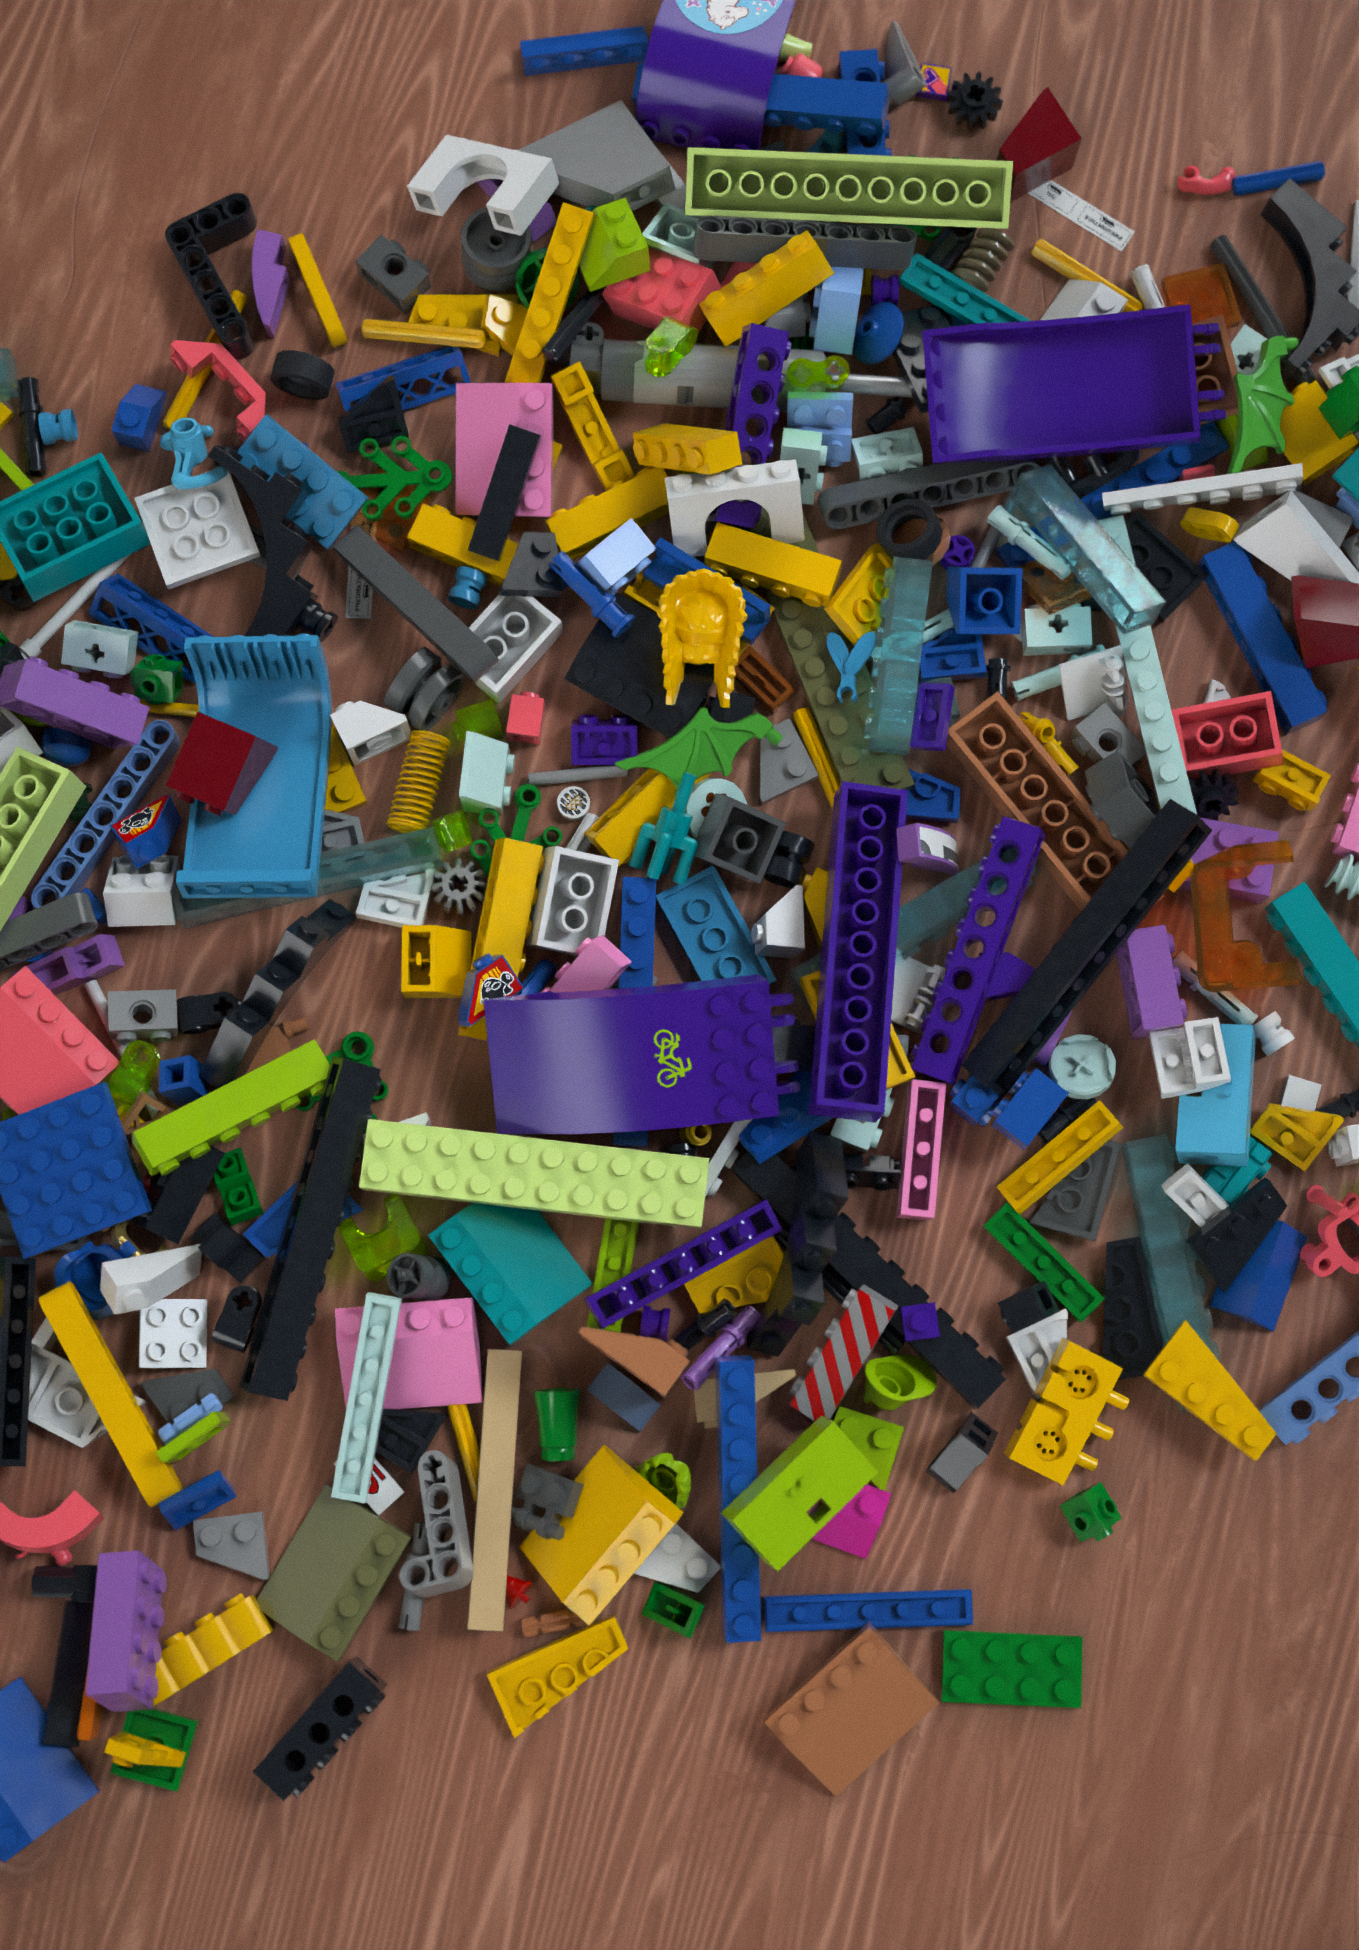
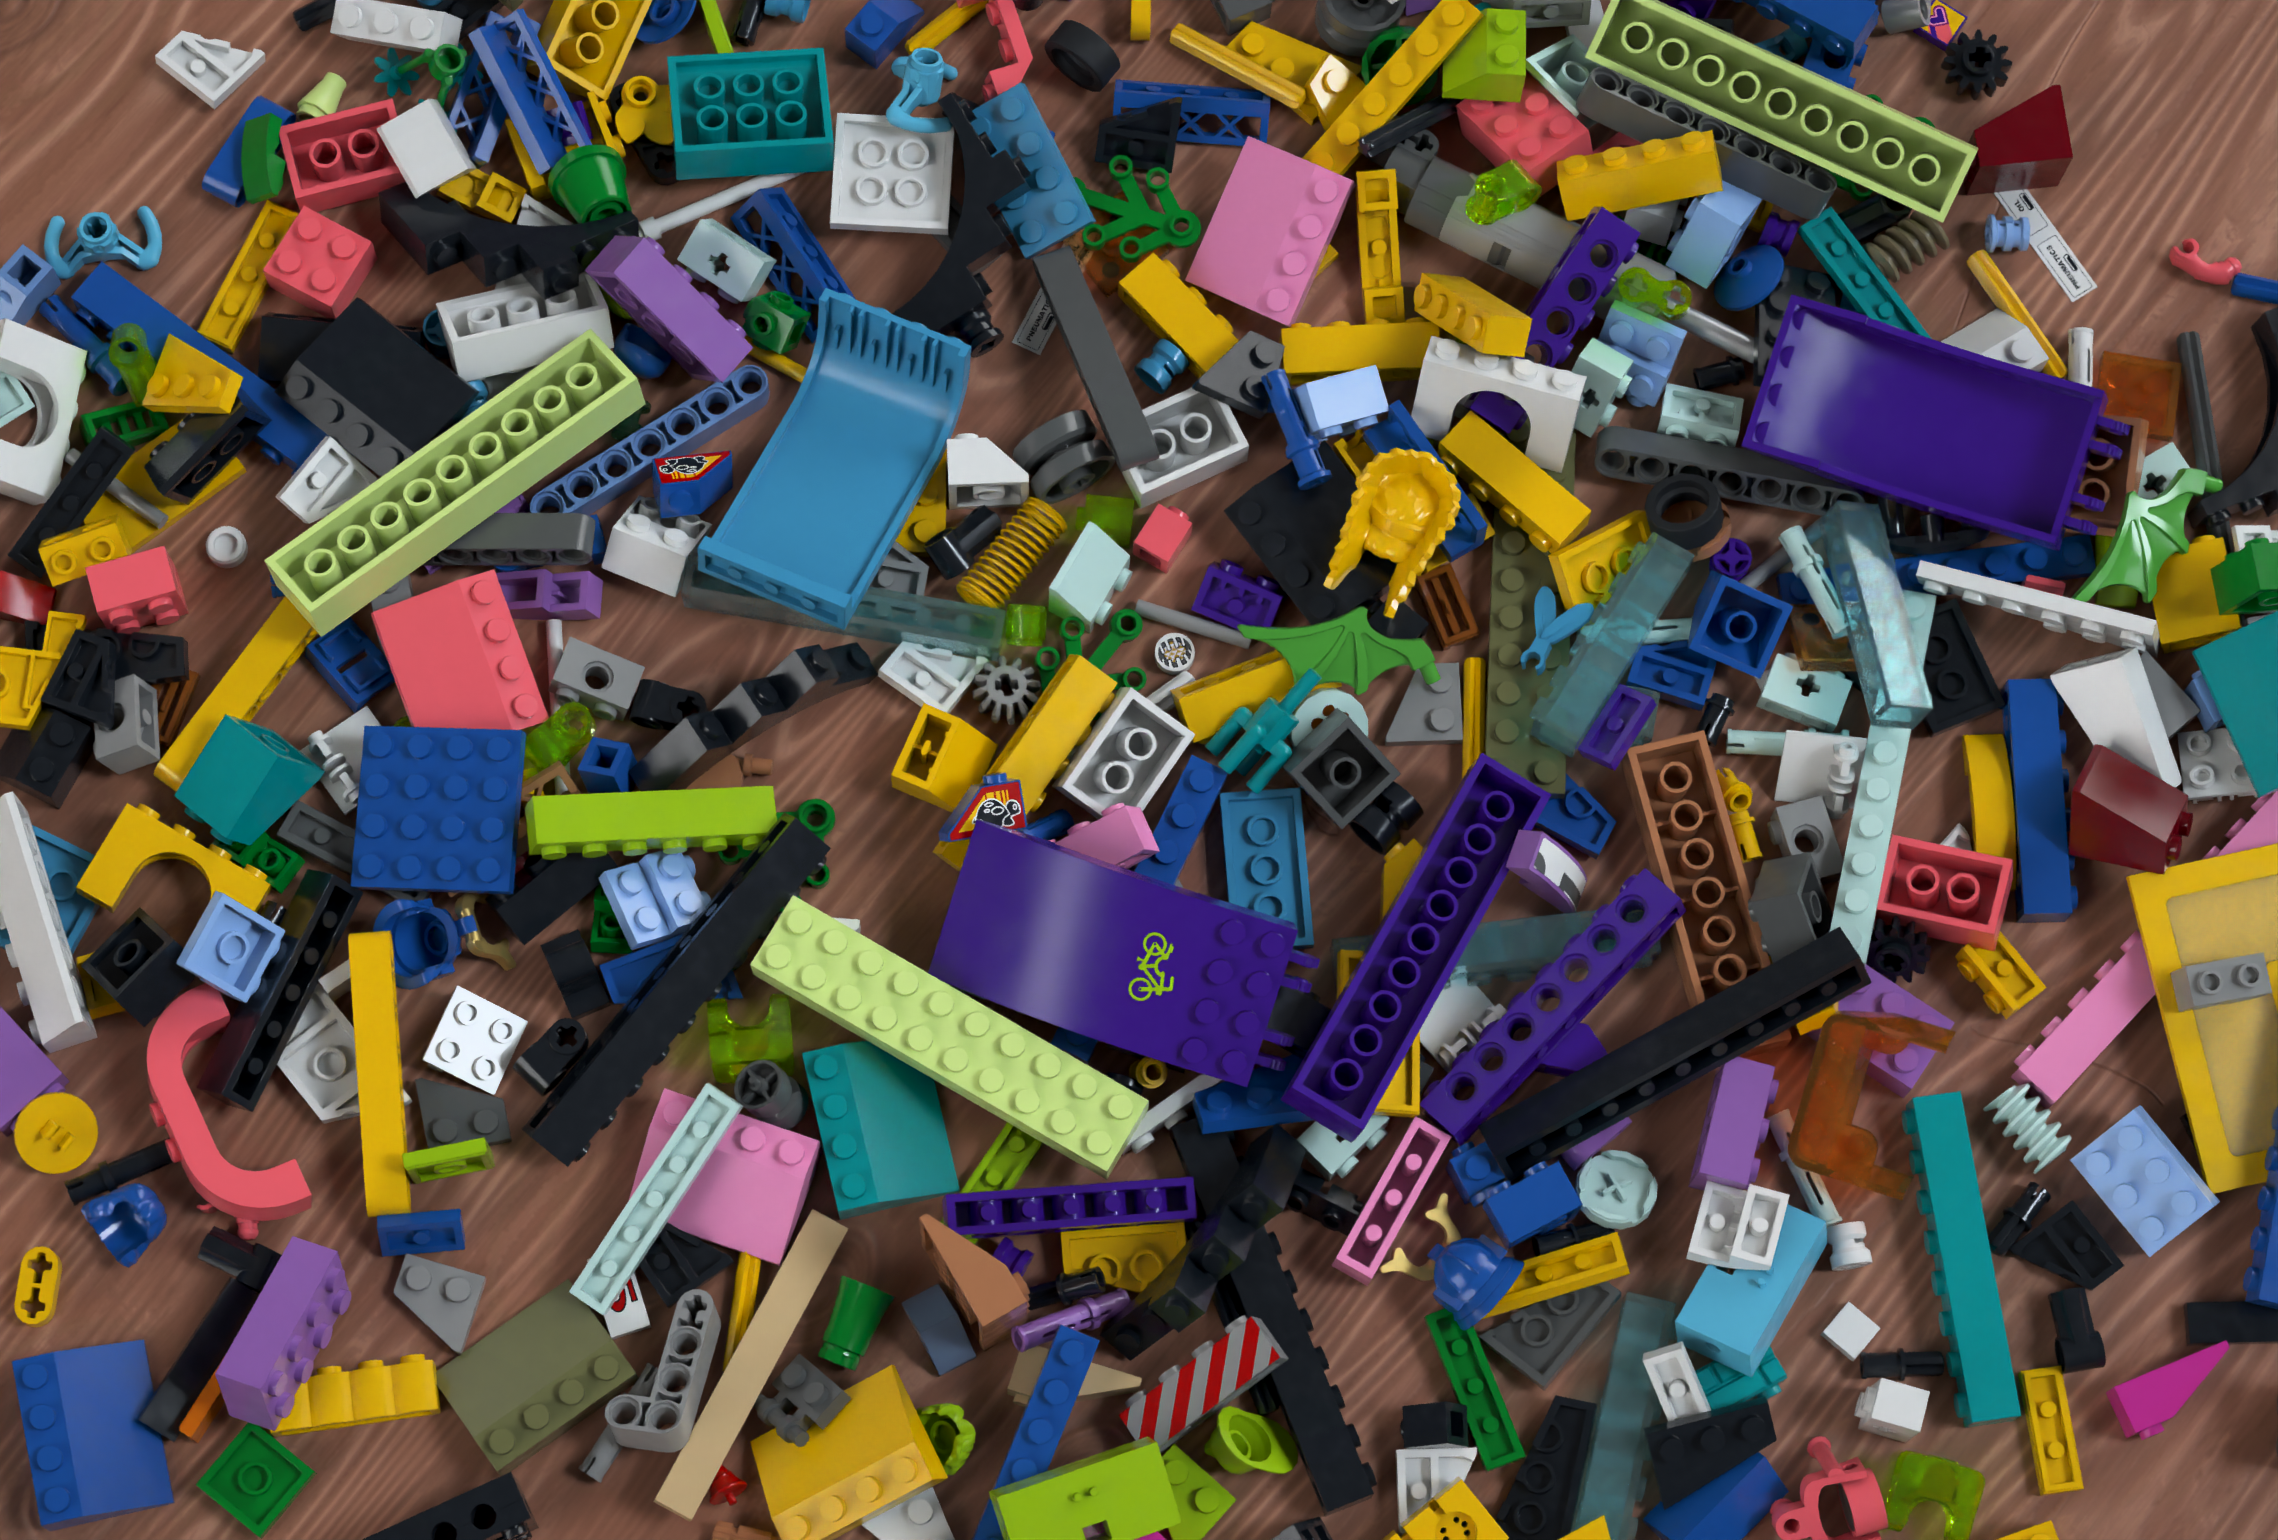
camera: 20 degrees right, 5 degrees down
(134, 1749) = (235, 1467): yellow wing -> none
(148, 1278) = (477, 965): white slope -> none
(190, 1417) = (454, 1135): light blue axle -> none
(219, 765) = (801, 442): dark red slope -> none
(262, 1163) = (654, 897): none -> light blue plate
(373, 793) = (956, 546): none -> black piece
(504, 492) = (1247, 278): black tile -> none
(781, 928) = (1344, 888): white slope -> none
(919, 1321) = (1304, 1386): dark purple plate -> none
(1005, 1180) = (1467, 1272): none -> blue helmet
(1052, 219) = (2007, 233): none -> light blue bush
(1209, 524) = (2031, 649): yellow beam -> none
(1226, 648) = (1991, 796): none -> yellow slope
(1295, 1132) = (1826, 1367): yellow wing -> none

